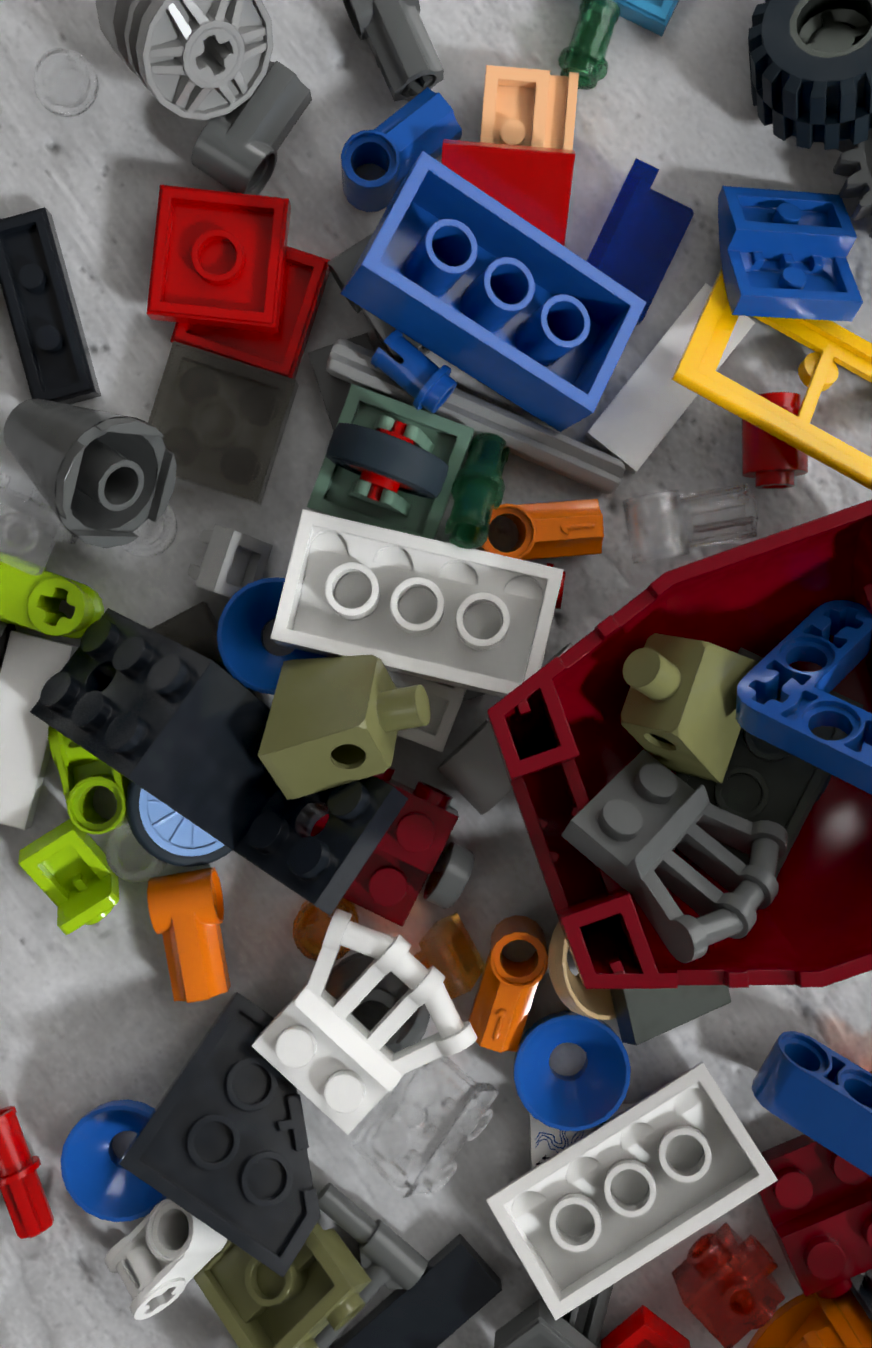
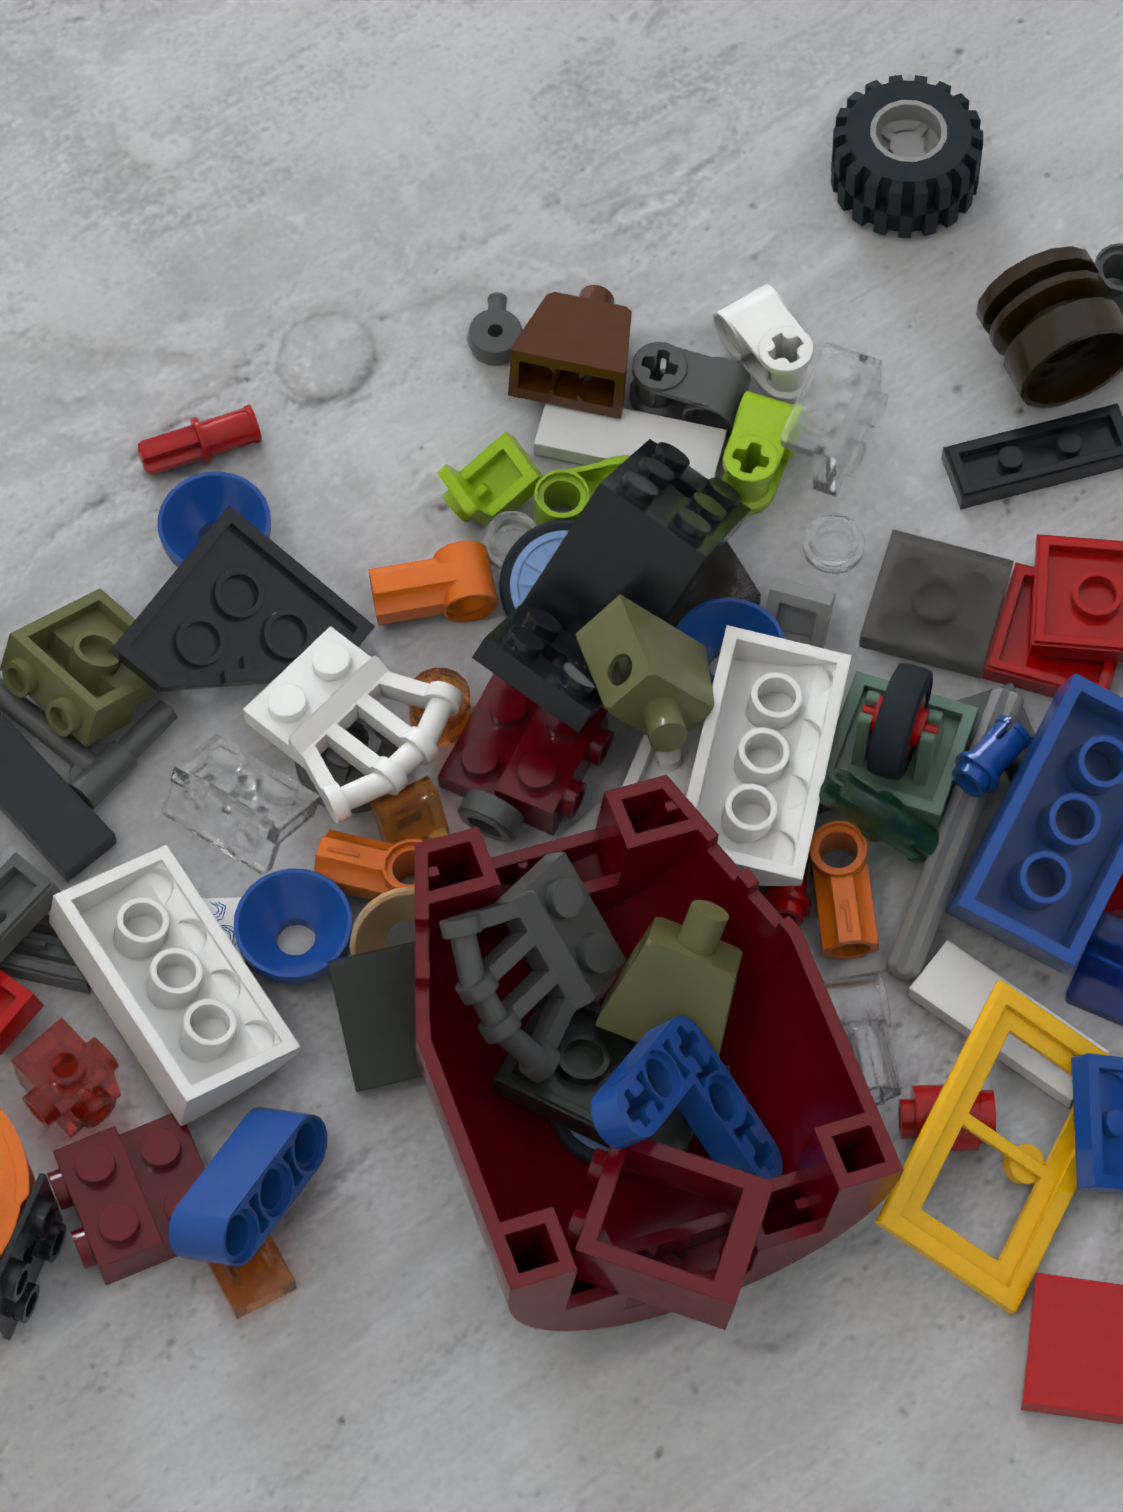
camera: 90 degrees right, 25 degrees down
(93, 468) = (880, 485): dark grey cone -> none
(162, 1257) = (119, 562): white piece -> none

